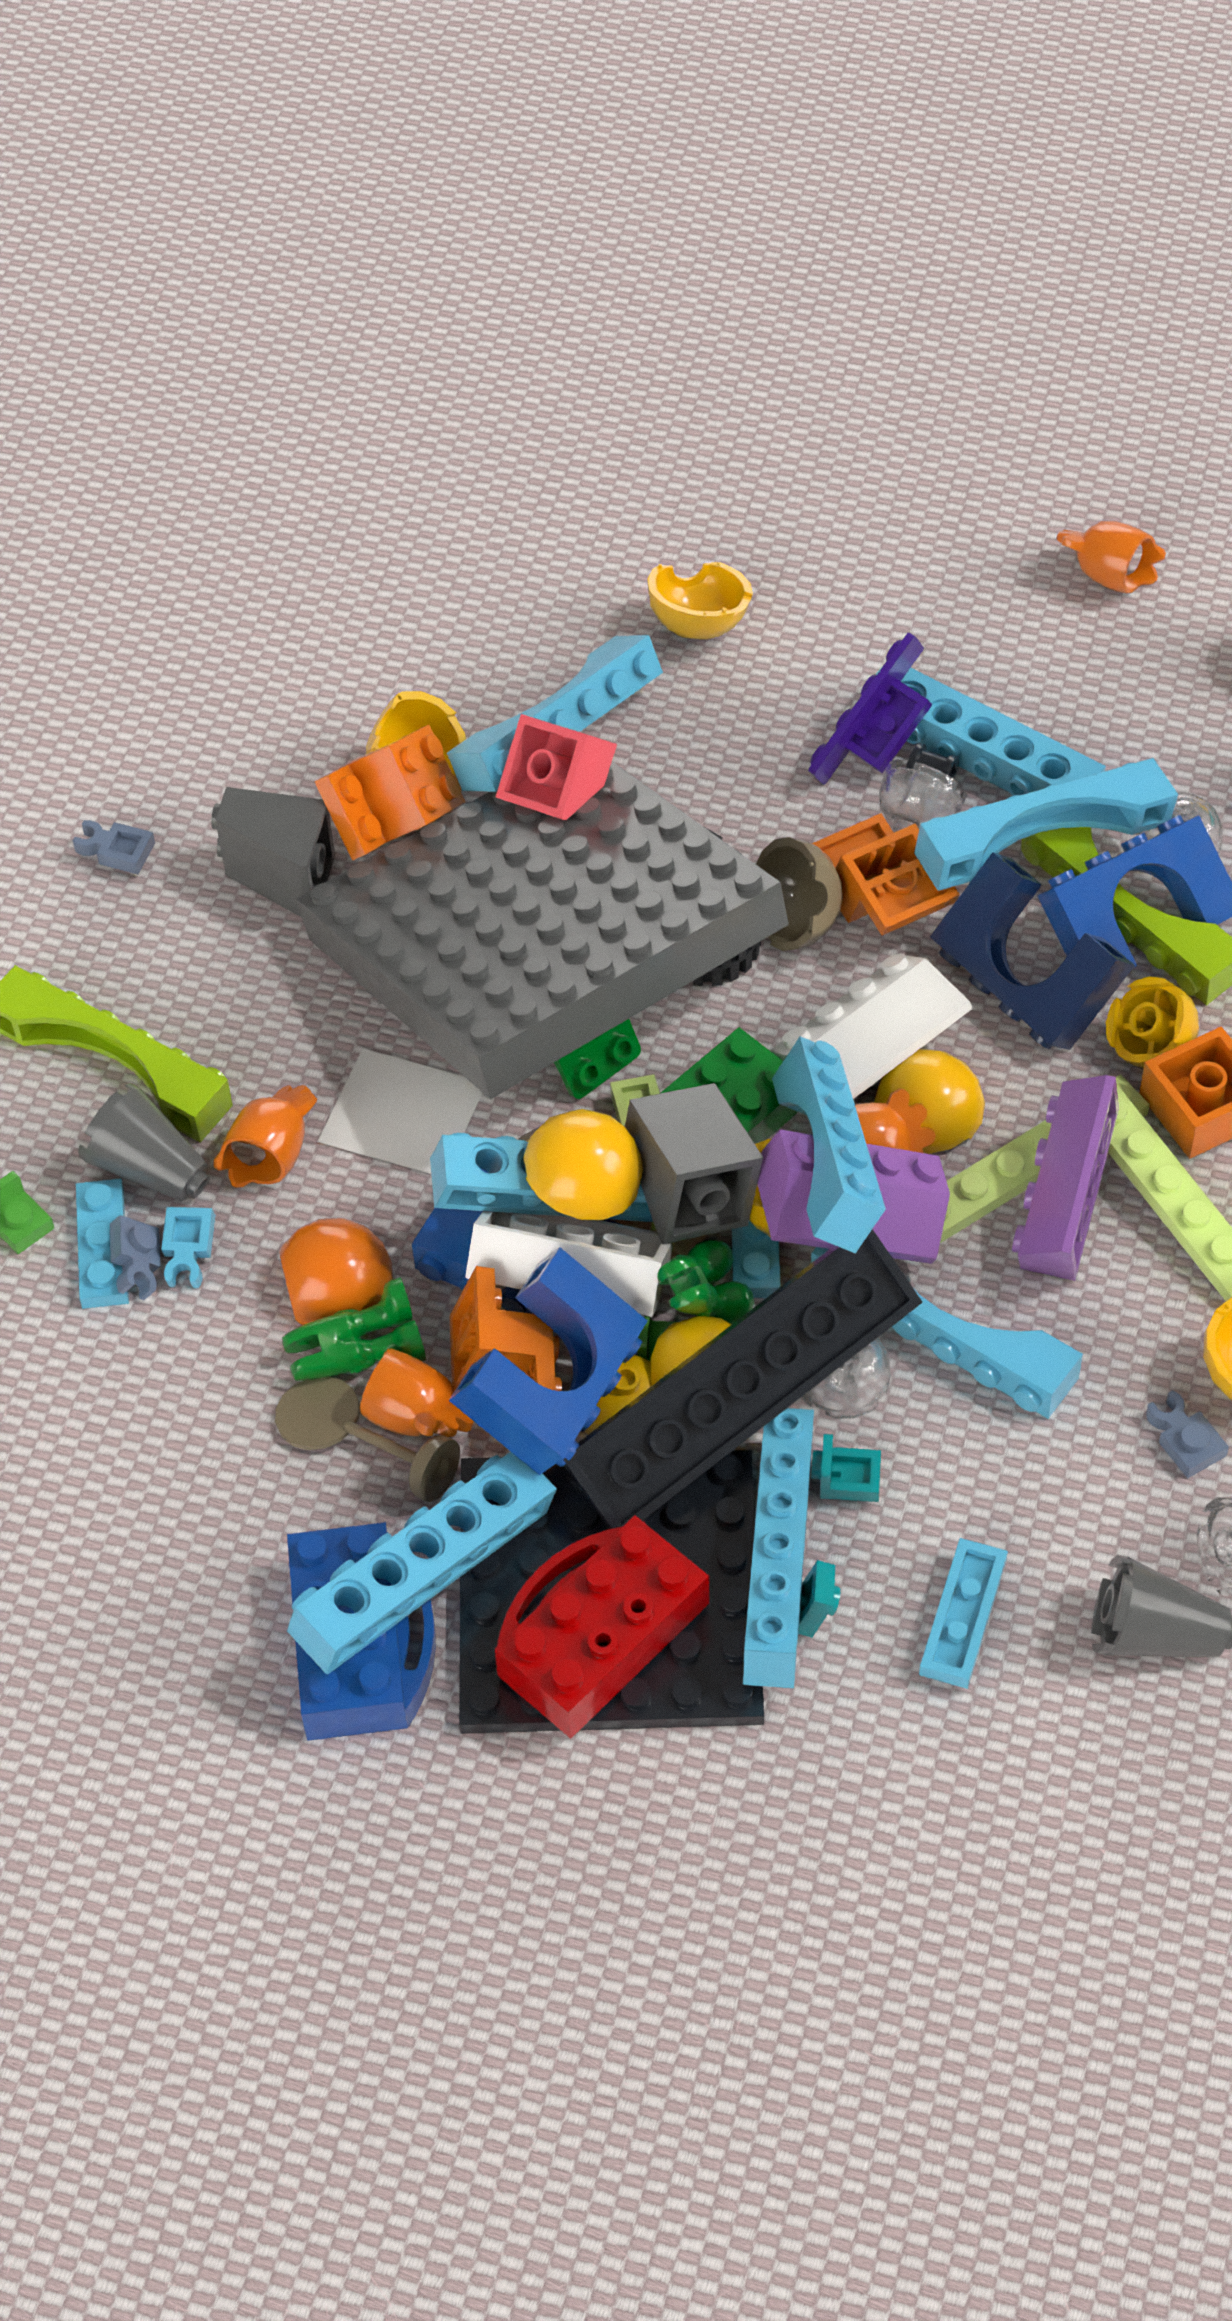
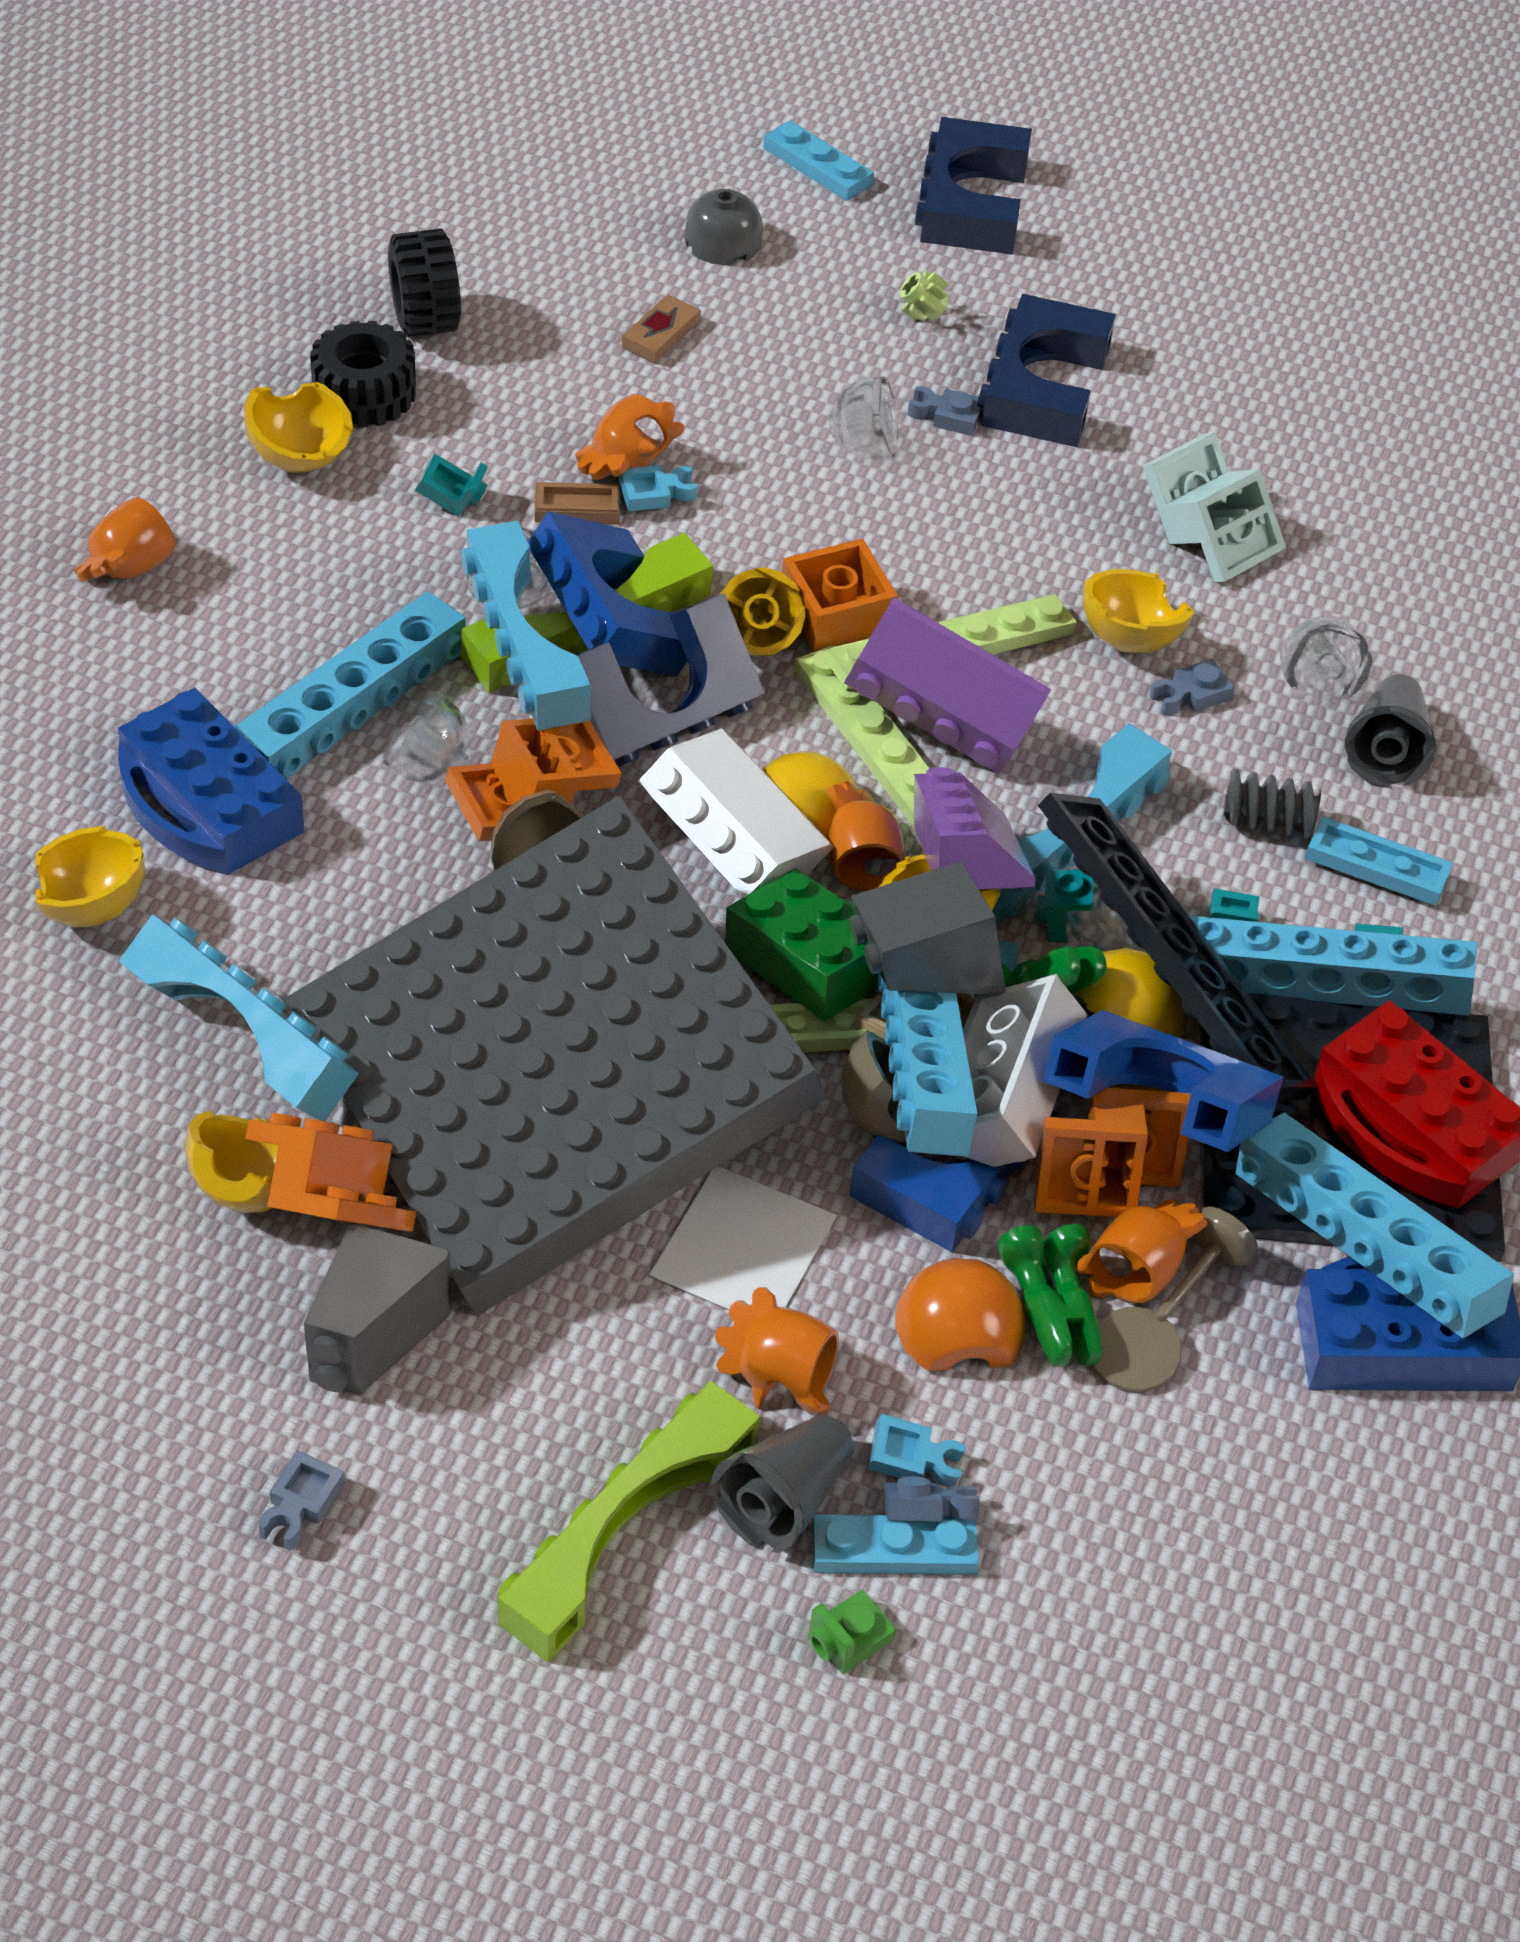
camera: 90 degrees left, 5 degrees down
(553, 768) = (365, 998): coral slope -> none
(584, 1165) = (939, 1010): yellow cylinder -> none
(825, 656) = (208, 782): none -> blue piece
(844, 1186) = (1034, 791): medium azure arch -> none
(879, 719) = (325, 743): dark purple bracket -> none
(946, 765) = (374, 732): black bush -> none
(1013, 1501) = (1272, 803): none -> dark grey piece

